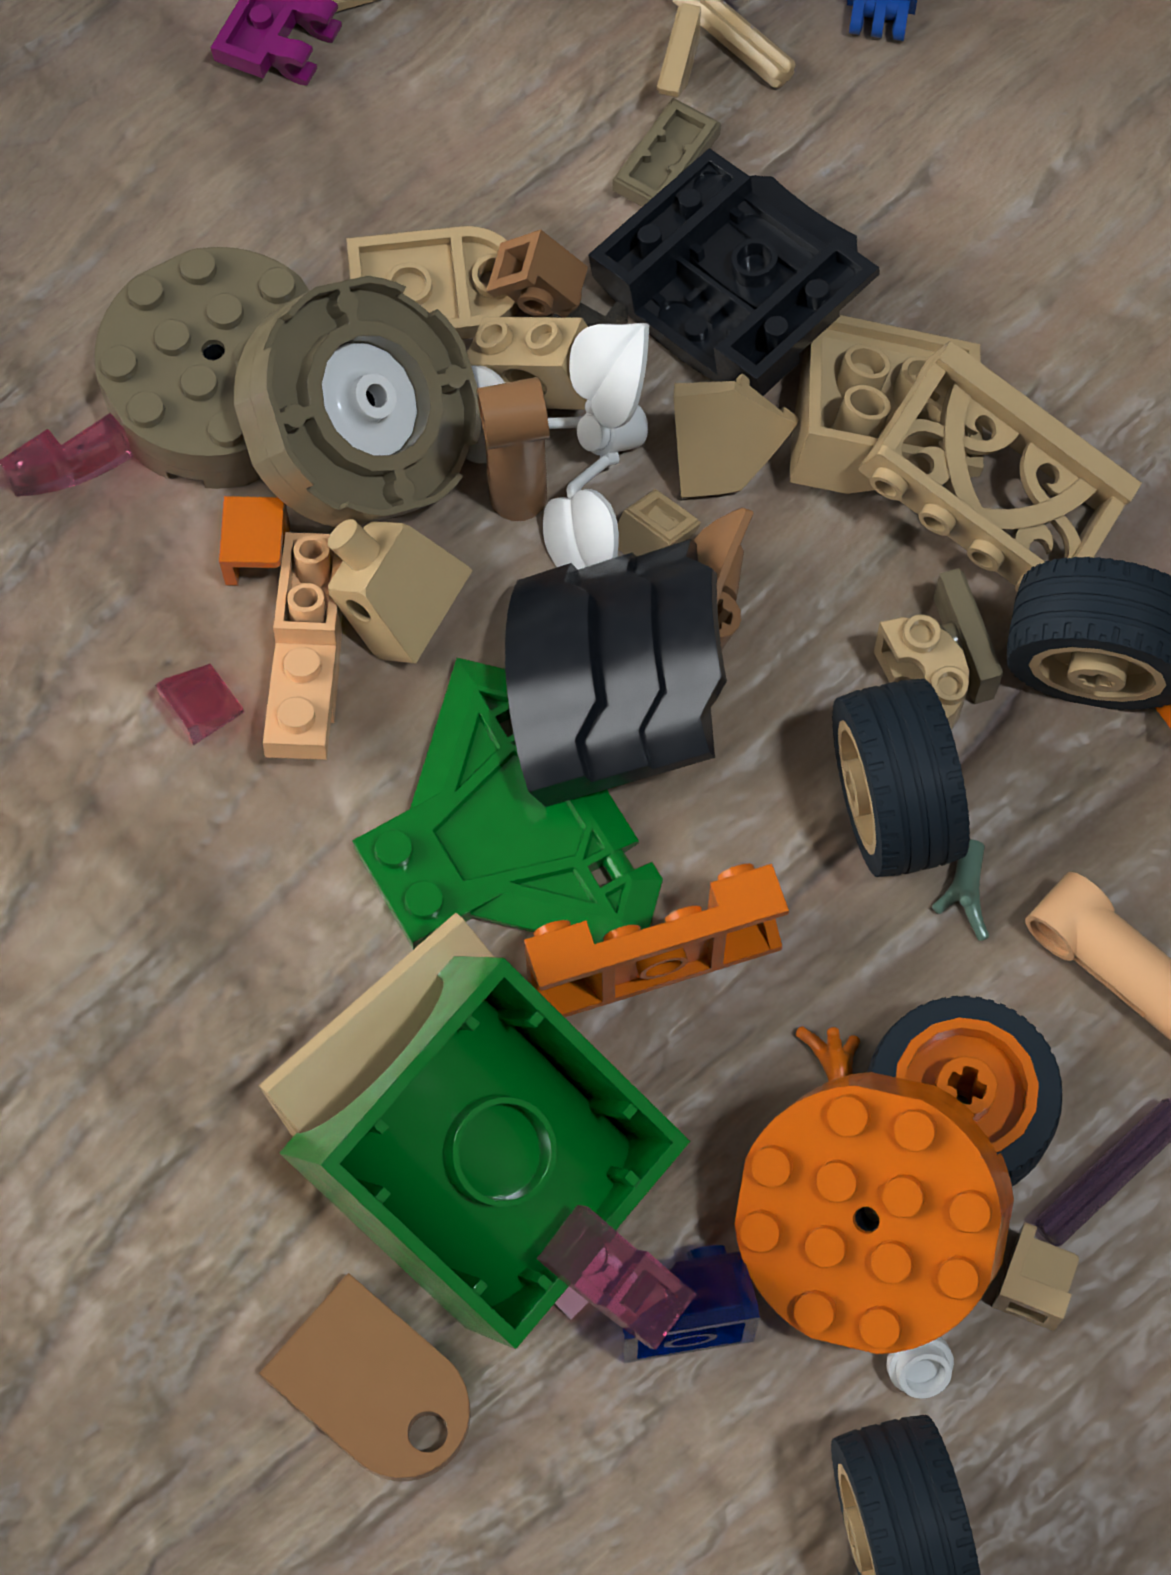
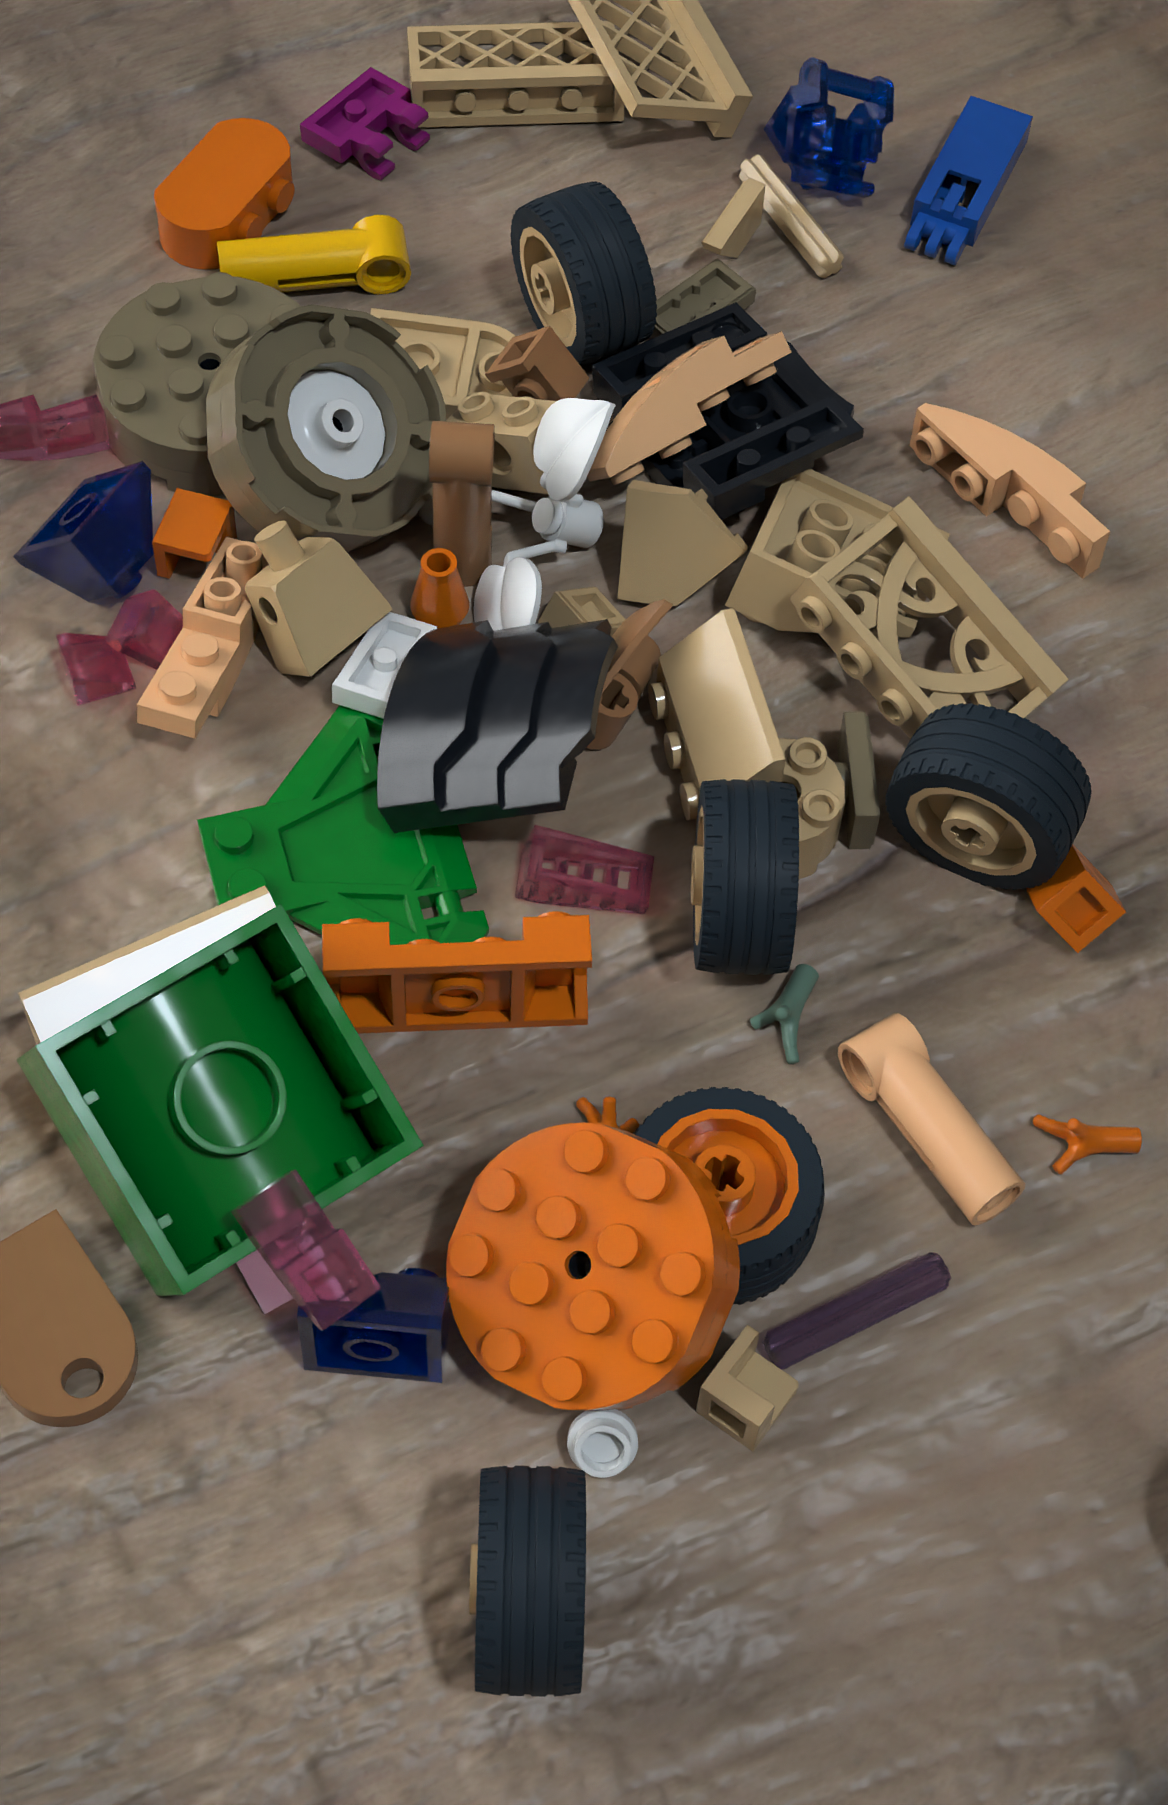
camera: 10 degrees right, 10 degrees down
(156, 561) = (97, 536): none -> clear blue slope
(160, 145) = (224, 191): none -> orange brick
(238, 650) = (145, 628): none -> clear pink slope
(324, 181) = (367, 256): none -> yellow piece
(477, 631) = (373, 666): none -> white plate
(511, 541) = (439, 590): none -> orange cone
(555, 158) = (584, 271): none -> black wheel
(677, 286) = (672, 402): none -> light nougat slope
(711, 820) = (561, 889): none -> clear pink slope
(822, 613) = (714, 711): none -> tan slope
(1009, 264) = (1005, 470): none -> light nougat slope

